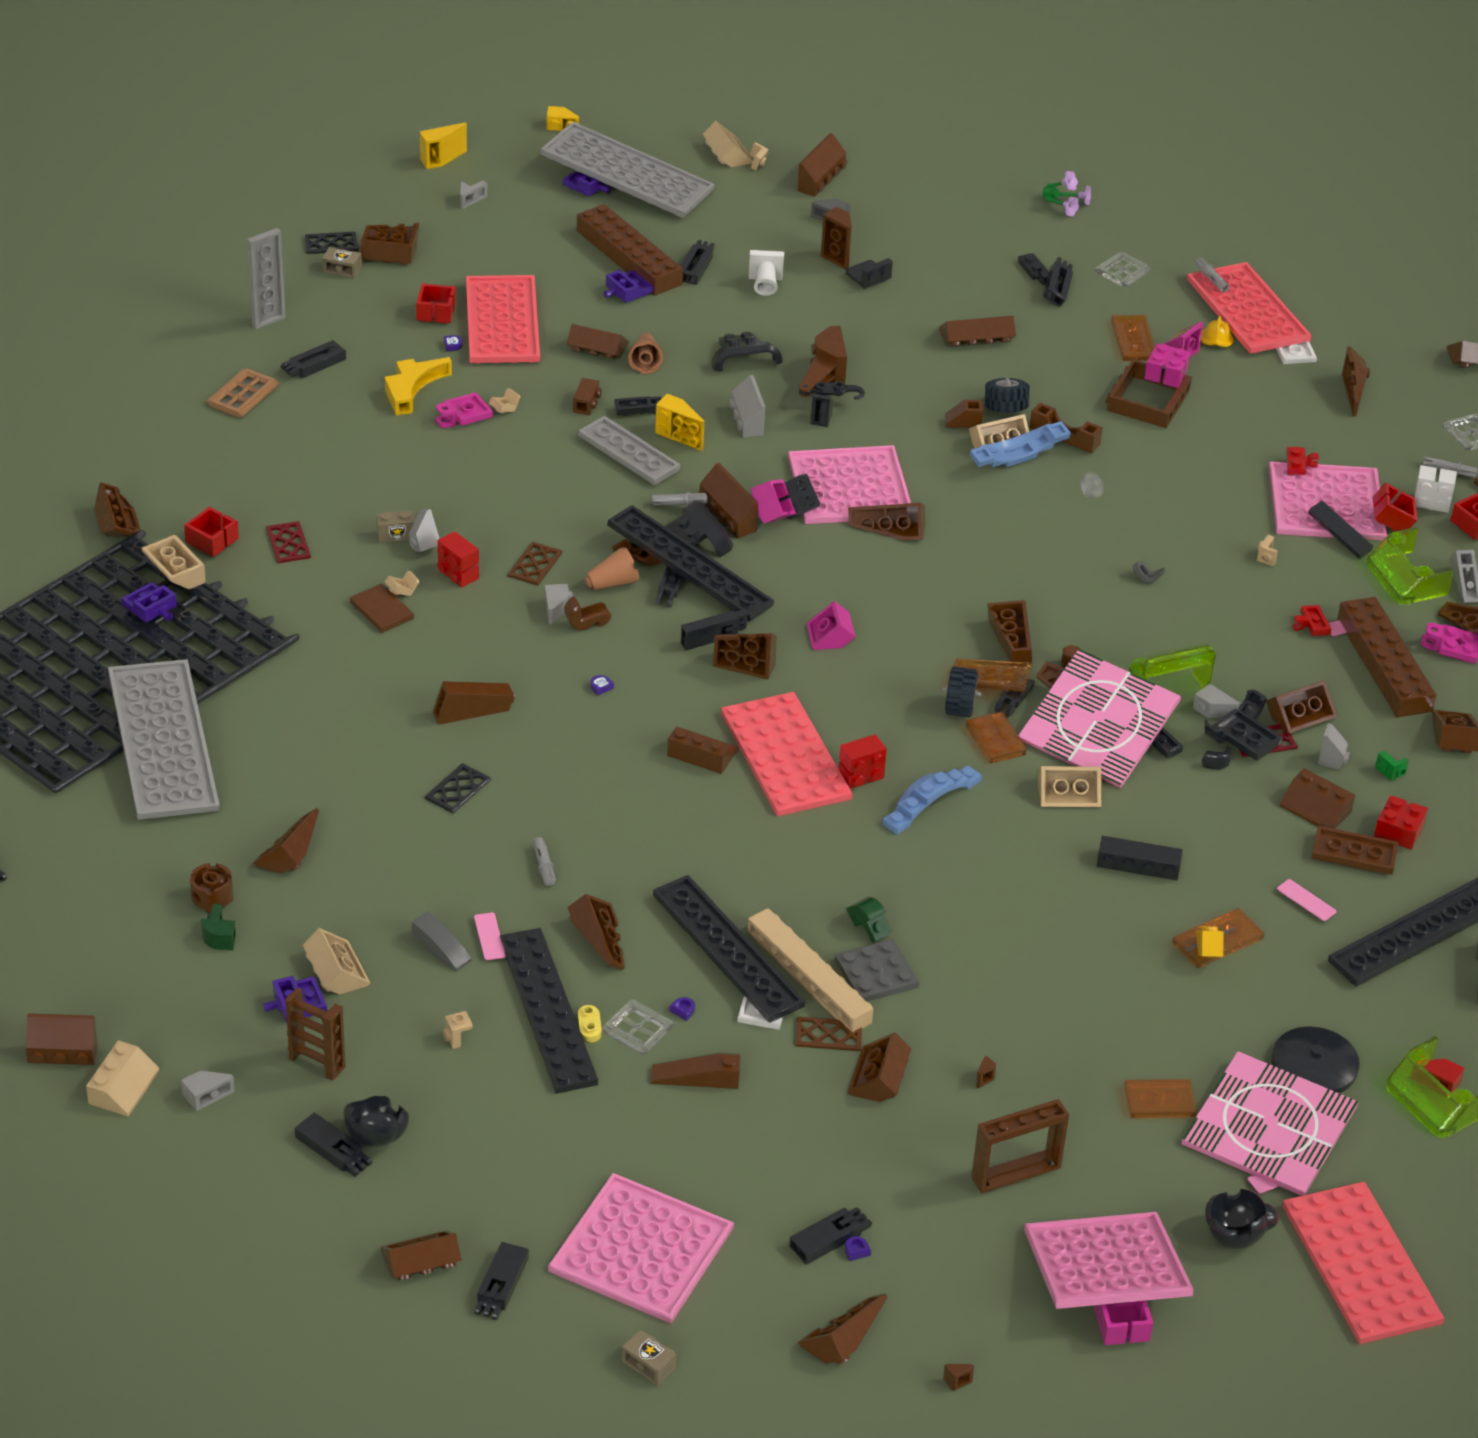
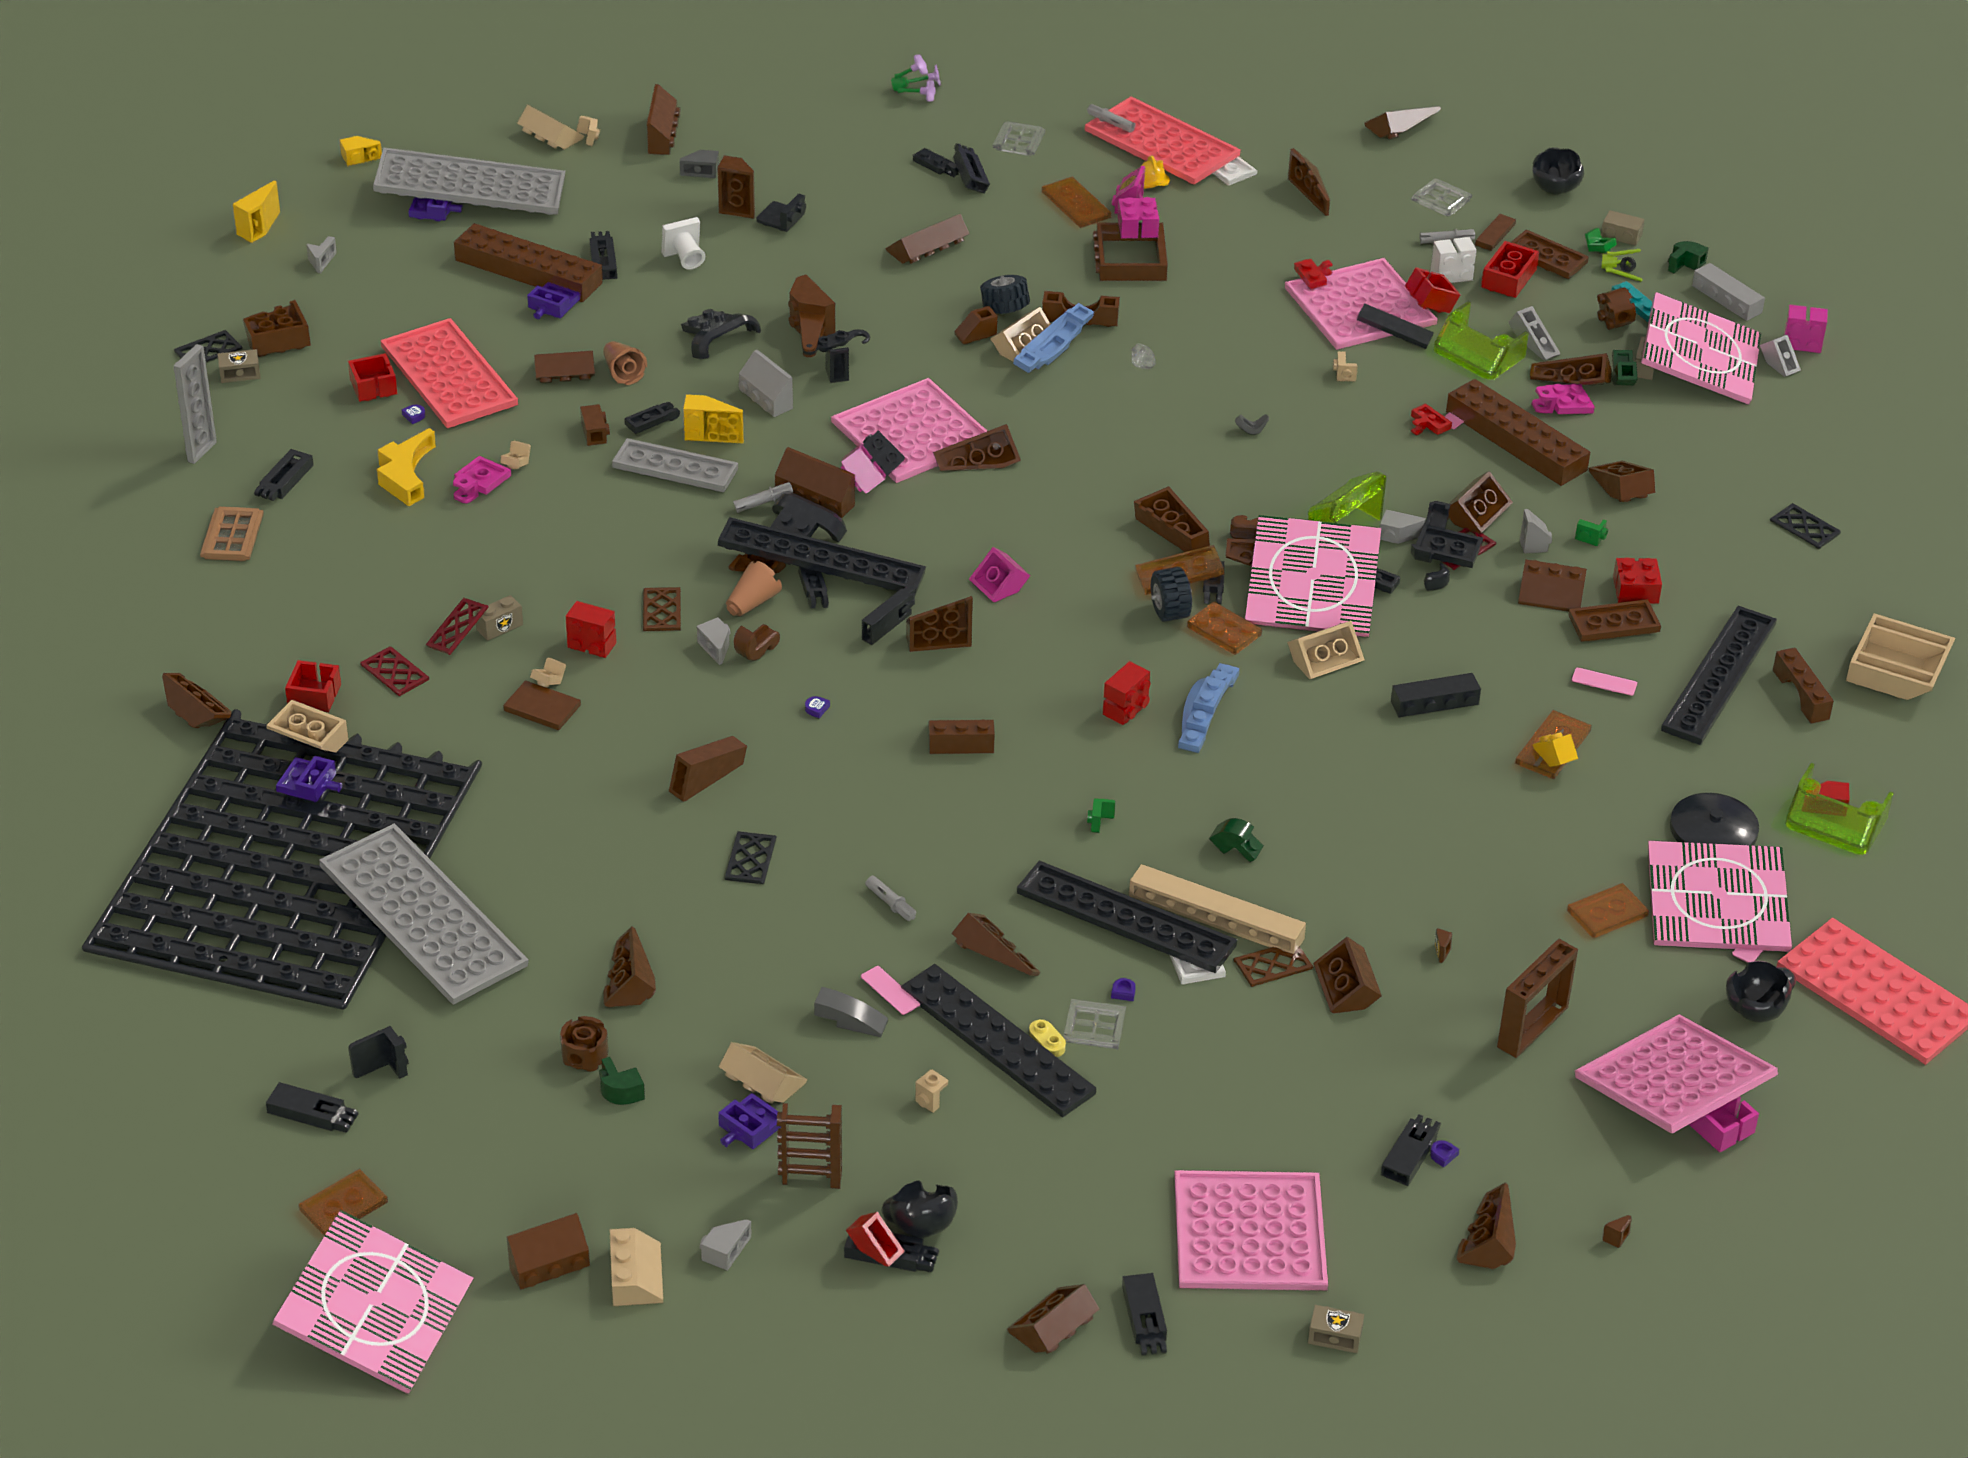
camera: 25 degrees left, 0 degrees up
(47, 833) = (377, 1051): none -> black bracket
(318, 1130) = (875, 1238): none -> red slope
(348, 521) = (455, 615): none -> dark red window
(423, 532) = (535, 612): light grey slope -> none
(709, 1070) = (1186, 1041): reddish brown wedge -> none
(767, 852) = (1101, 809): none -> green bracket
(786, 754) = (1042, 711): coral plate -> none
(877, 970) = (1275, 885): dark grey plate -> none

